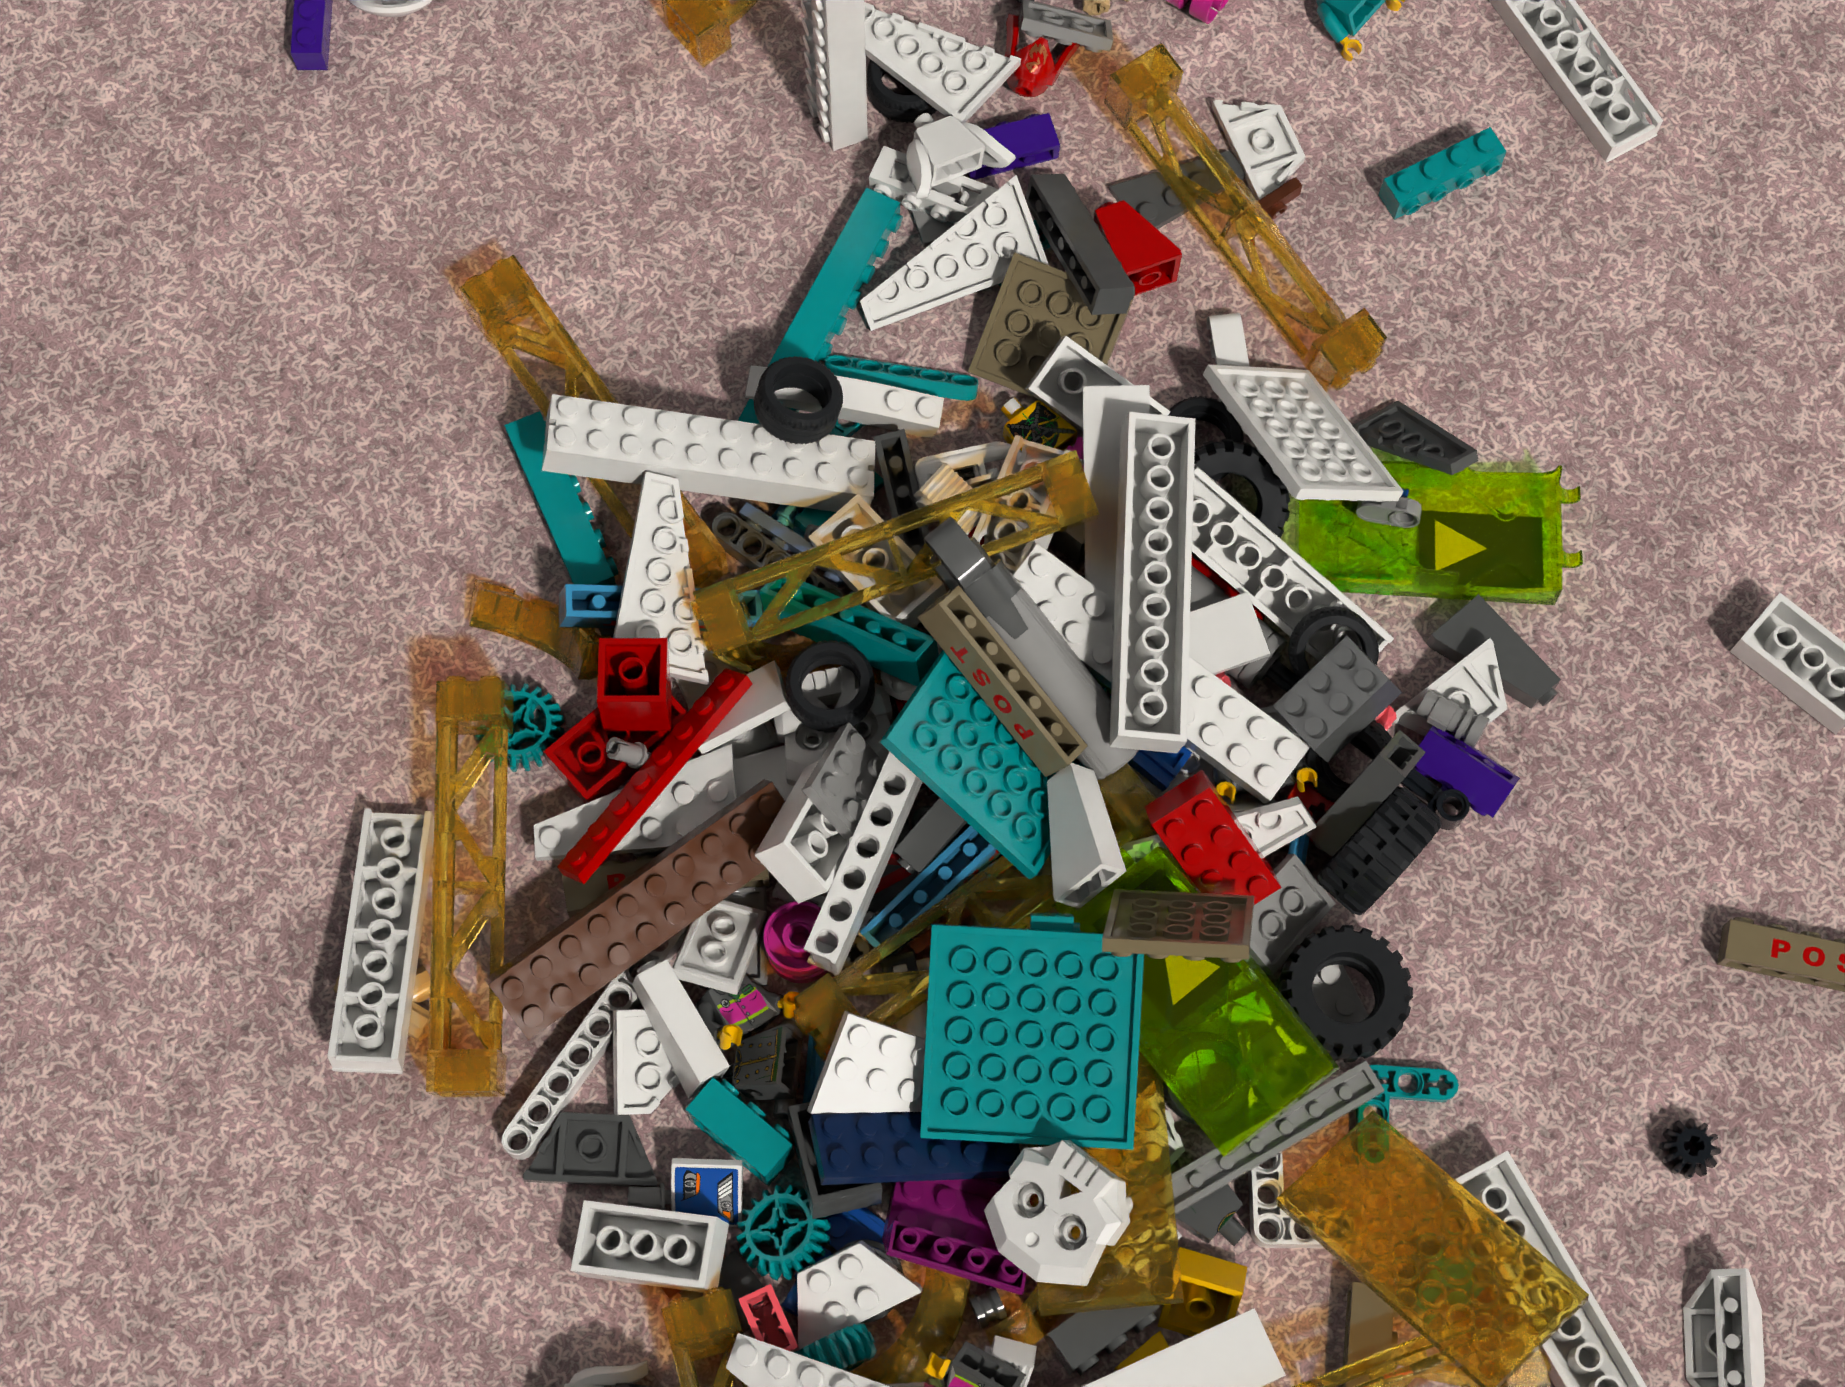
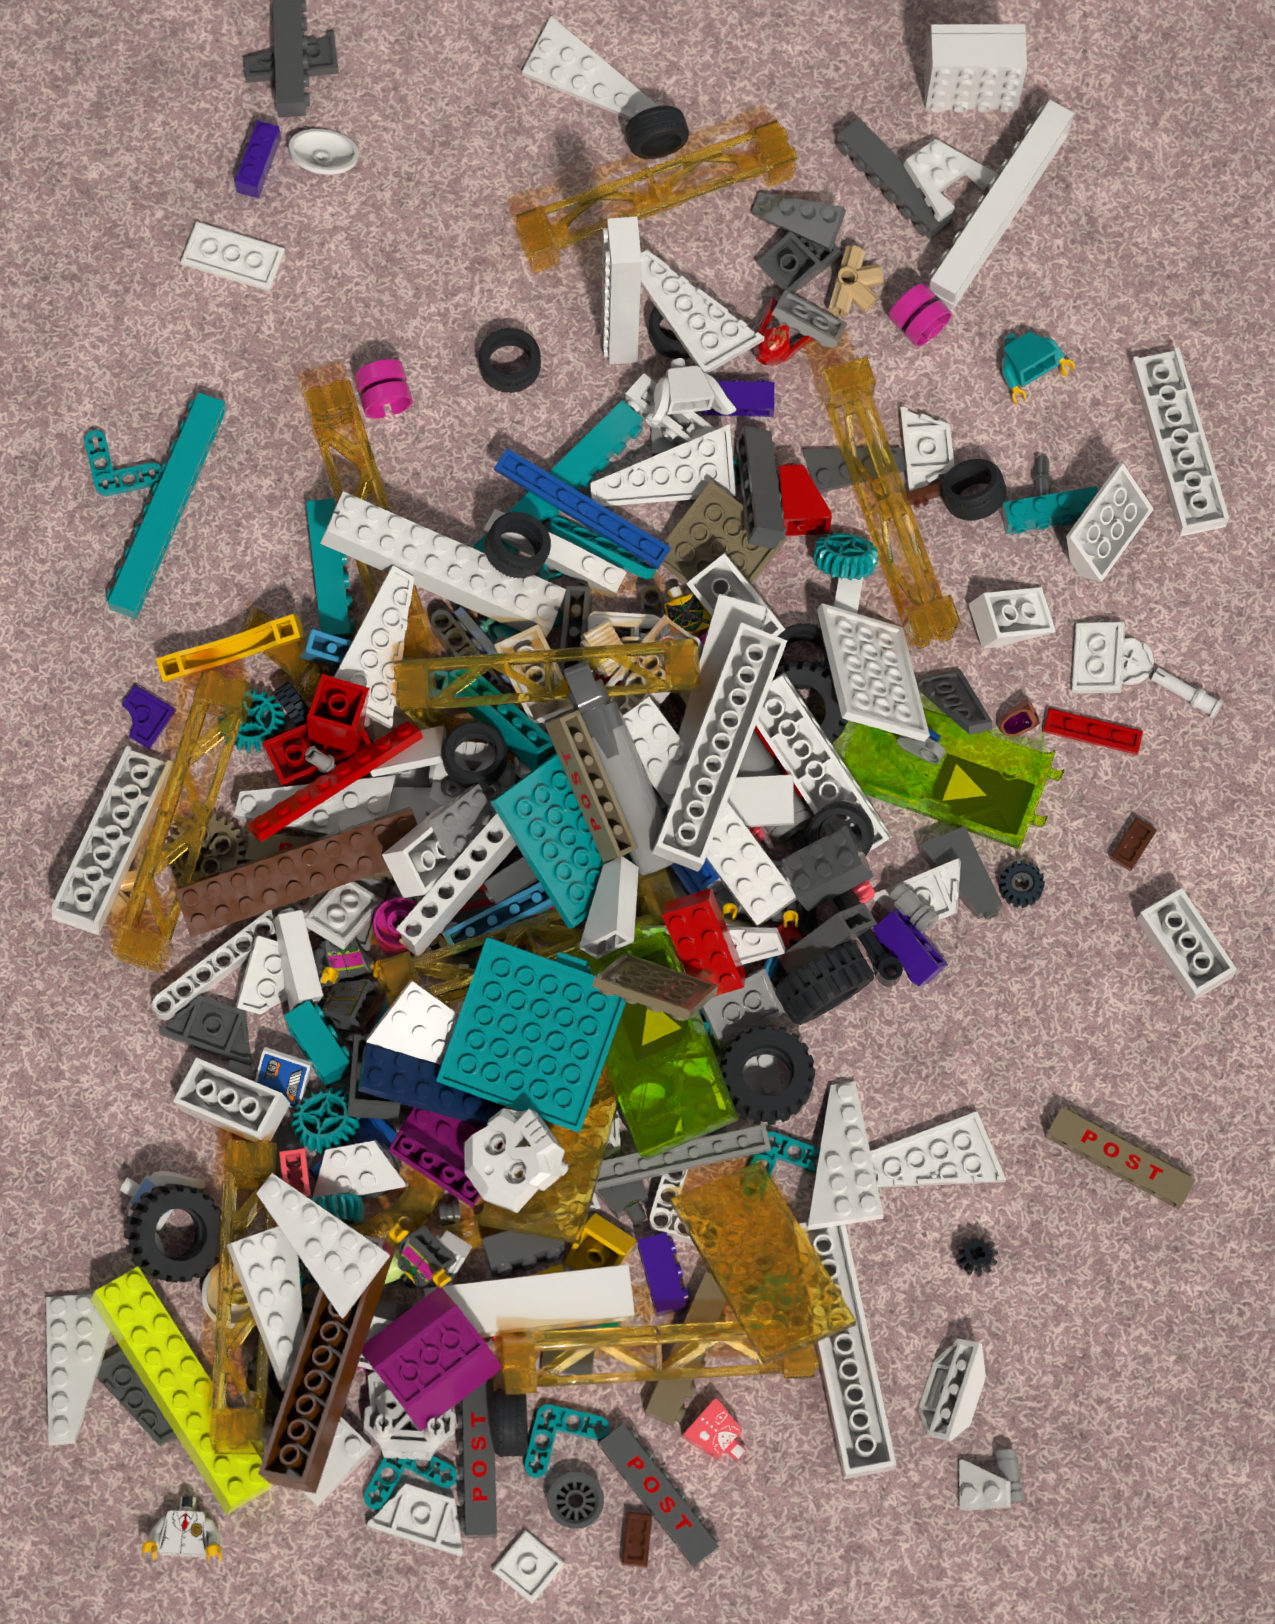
camera: 15 degrees right, 0 degrees up
(238, 465) = (108, 474): none -> teal beam
(315, 149) = (232, 256): none -> white tile
(324, 484) = (166, 506): none -> teal brick
(381, 759) = (148, 716): none -> dark purple tile
(464, 642) = (231, 649): none -> yellow arch
(541, 921) = (224, 860): none -> dark tan gear
(557, 251) = (383, 384): none -> dark pink wheel
(568, 689) = (292, 703): none -> black bush
(713, 206) = (509, 382): none -> black tyre
(861, 334) = (582, 508): none -> blue plate
(988, 435) = (651, 608): none -> dark grey piece
(1211, 300) = (845, 556): none -> teal gear
(1294, 1302) = (662, 1274): none -> dark purple brick
(1331, 155) = (968, 474): none -> black tyre
(1414, 136) = (1042, 476): none -> dark grey axle
(1438, 318) = (1011, 616): none -> white slope
(1488, 1093) = (845, 1172): none -> white wing
(1496, 441) = (1019, 719): none -> rock
(1524, 171) = (1107, 525): none -> white slope
(1564, 337) = (1098, 657): none -> white tile
(1573, 663) = (1017, 895): none -> black bush
(1589, 430) = (1093, 731): none -> red tile
(1596, 1030) = (939, 1156): none -> white wing
(1601, 331) = (1137, 662): none -> white tile
(1691, 556) = (1133, 844): none -> copper plate
(1702, 352) = (1197, 698): none -> white pin

